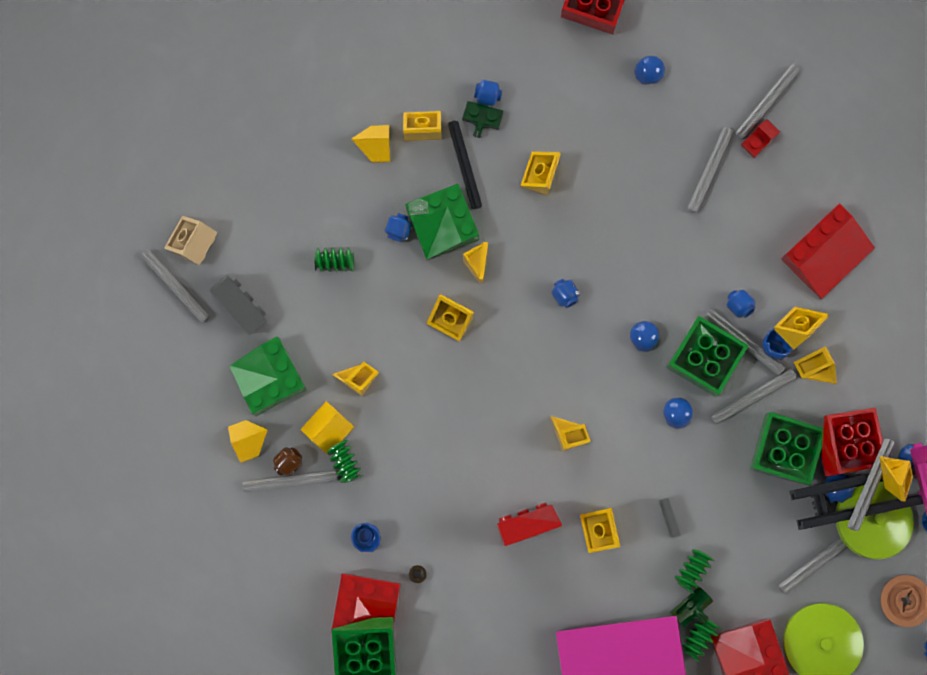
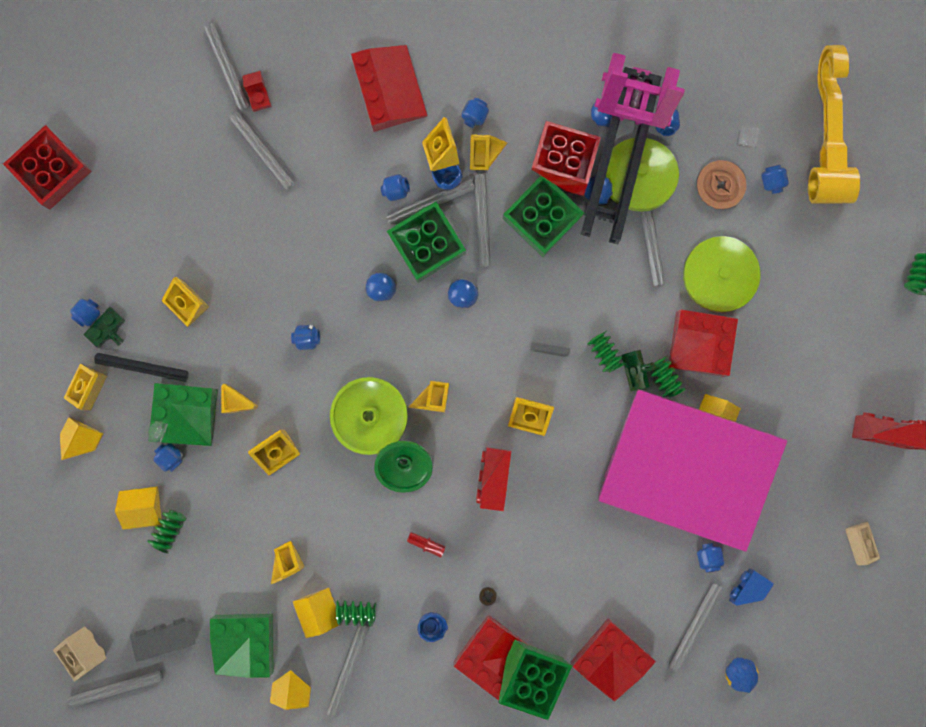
camera: 65 degrees left, 5 degrees up
(287, 461) = (329, 664): reddish brown head -> none
(341, 225) = (138, 508): none -> yellow slope
(436, 494) = (426, 544): none -> red axle
(486, 439) = (399, 474): none -> green dish
(525, 384) = (368, 415): none -> lime dish
(649, 70) = (142, 155): blue hair -> none
(847, 340) = (475, 112): none -> blue head
(870, 487) = (611, 160): light grey axle -> none
(896, 476) = (615, 135): yellow slope -> none

